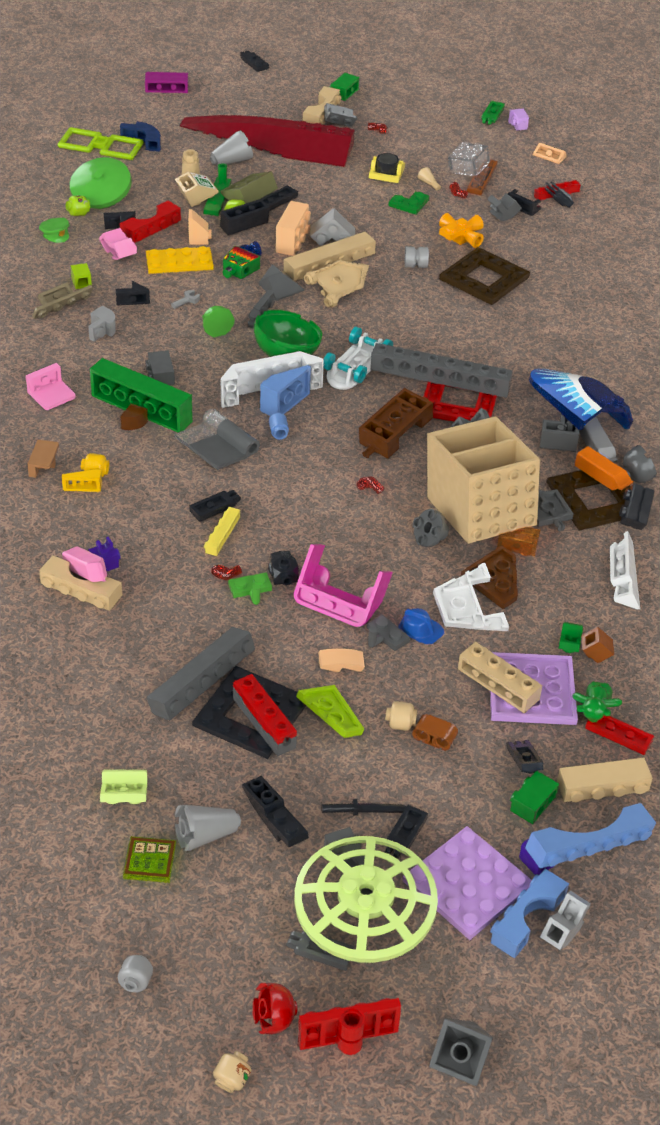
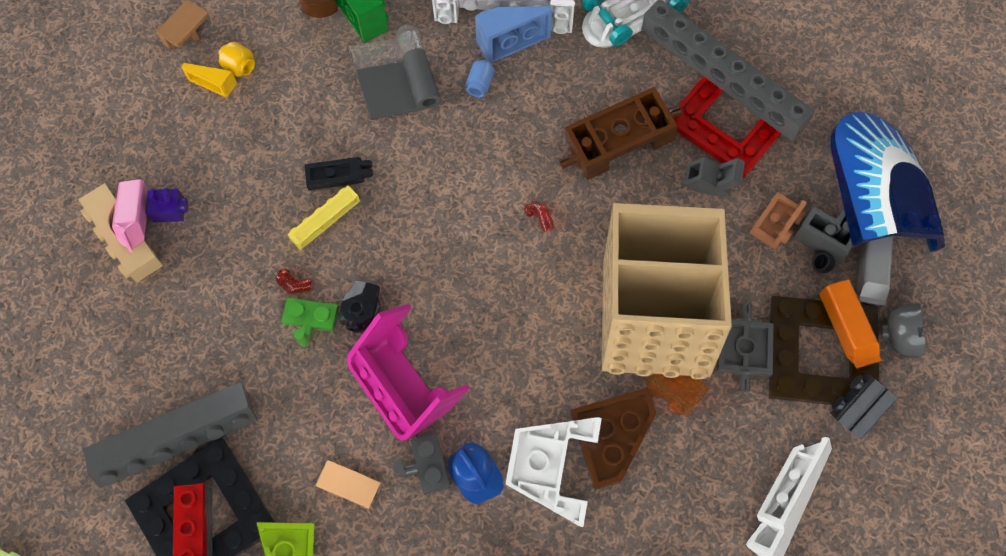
camera: 30 degrees right, 25 degrees up
(430, 528) = (569, 324): dark grey plate -> none
(528, 435) = (777, 219): none -> nougat bracket
(563, 452) = (823, 262): none -> black hinge

